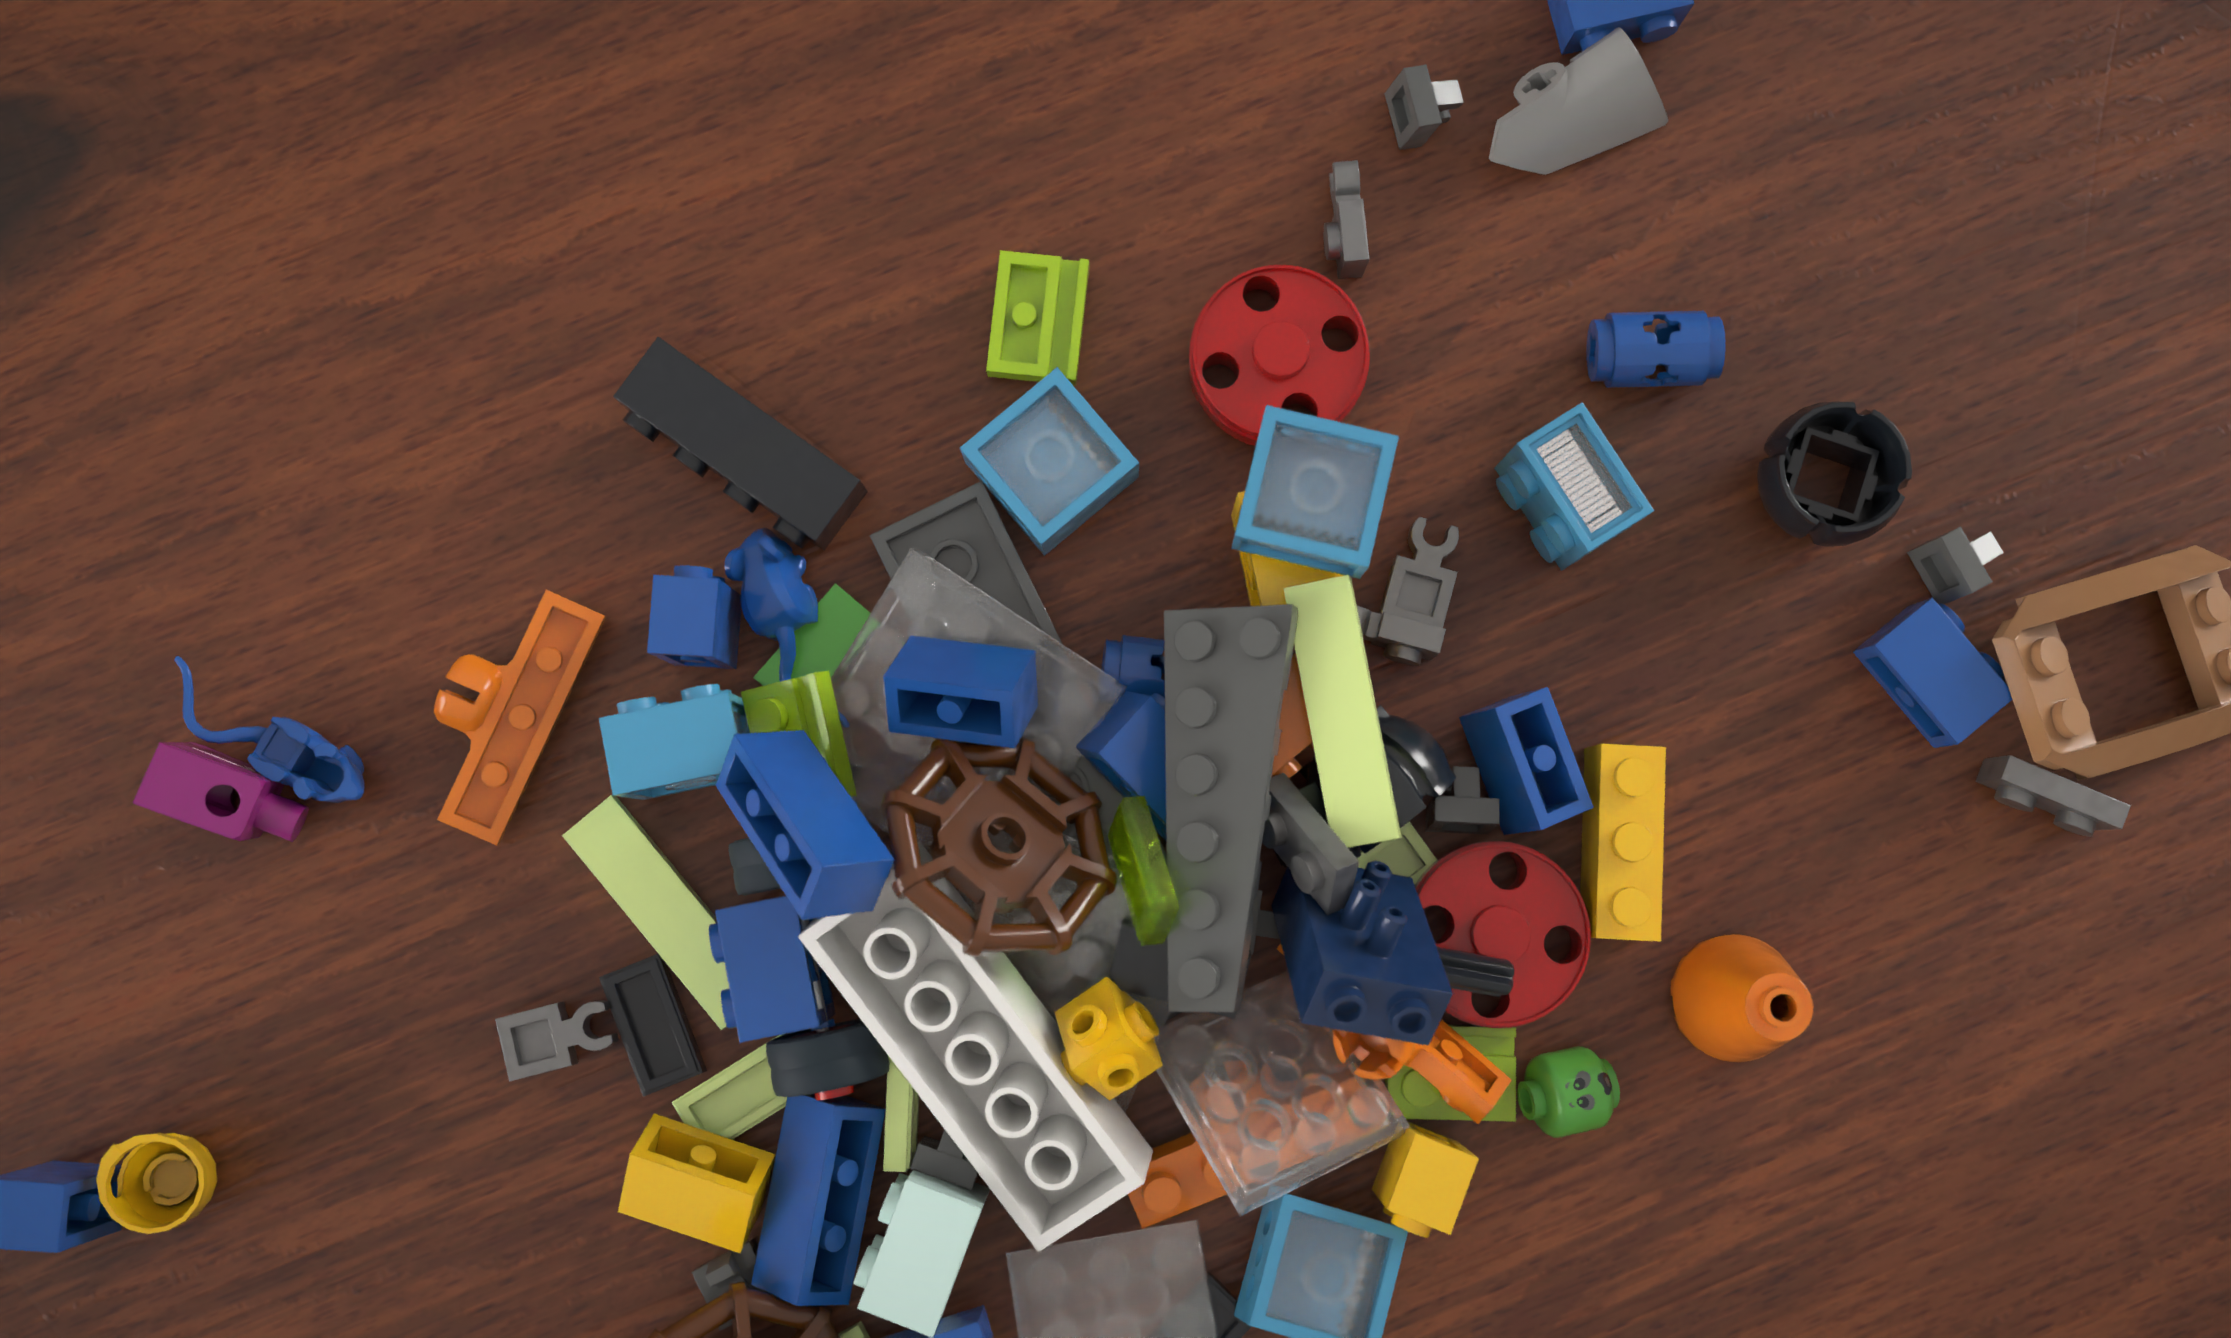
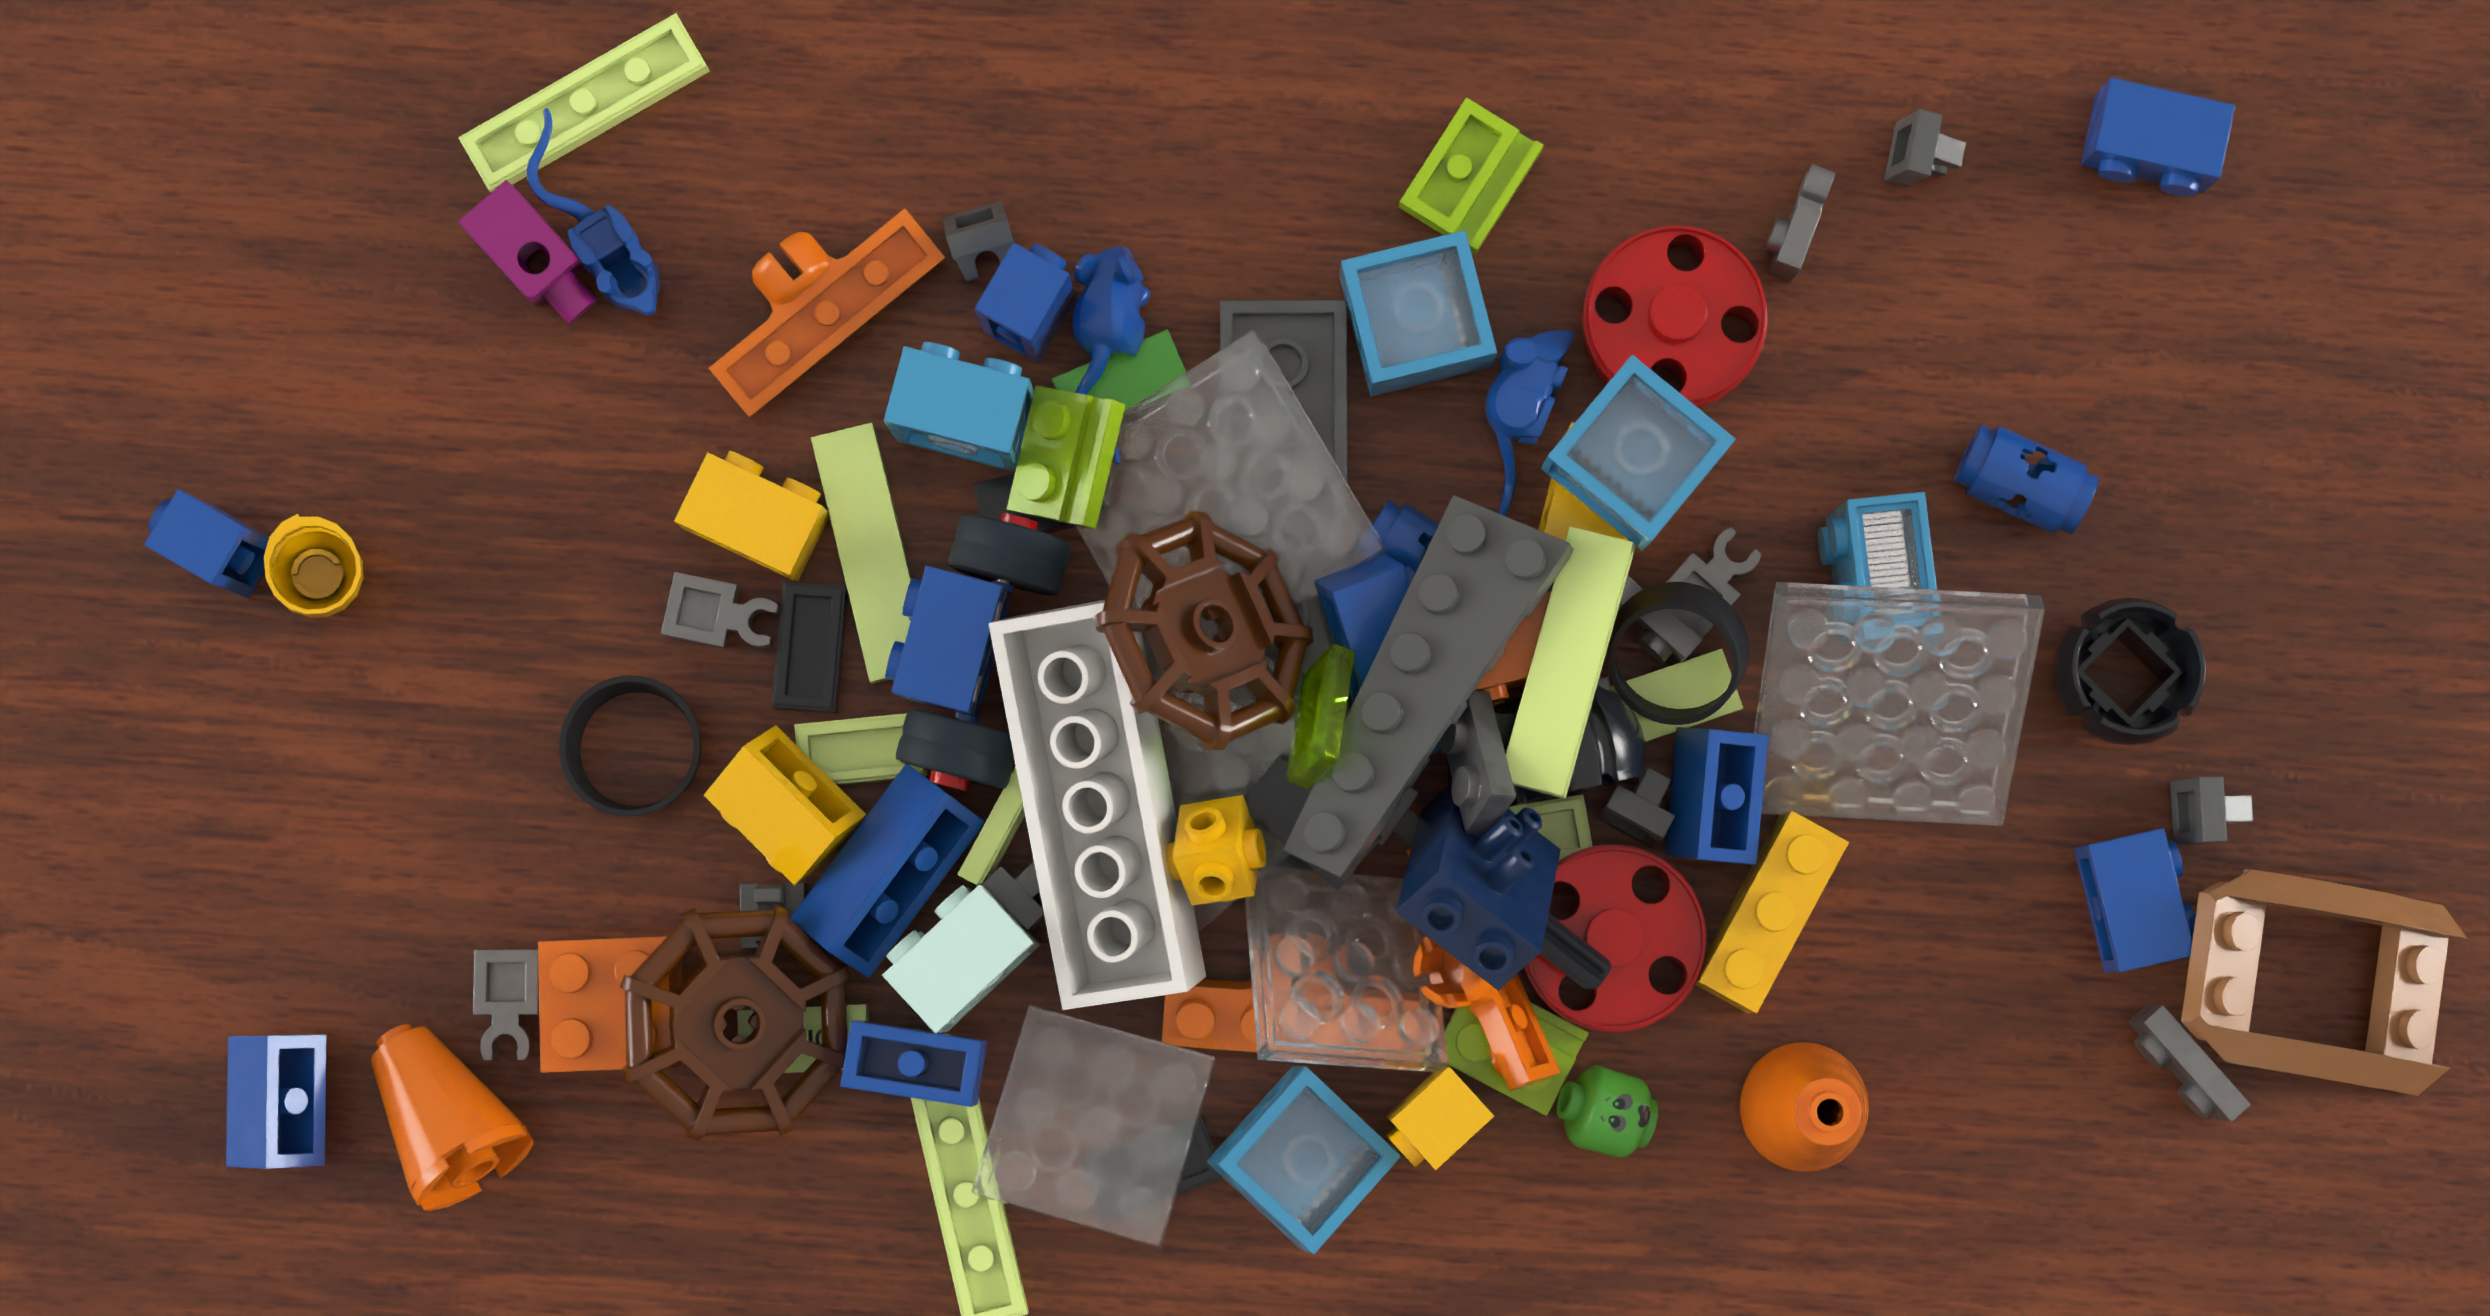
camera: 25 degrees right, 0 degrees up
(216, 631) = (586, 102): none -> yellowish green tile
(478, 1224) = (575, 724): none -> black tyre
(542, 933) = (753, 515): none -> yellow brick
(621, 580) = (975, 232): none -> dark grey tile
(740, 444) = (1142, 161): black brick -> none
(804, 824) = (1043, 525): blue brick -> none
(961, 691) = (1237, 479): blue brick -> none
(1178, 492) = (1521, 396): none -> blue animal
(1420, 599) = (1696, 600): none -> black tyre
(1448, 685) = (1685, 687): none -> yellowish green tile
(1579, 108) = (2065, 223): light grey panel -> none
(1645, 599) = (1895, 701): none -> clear plate

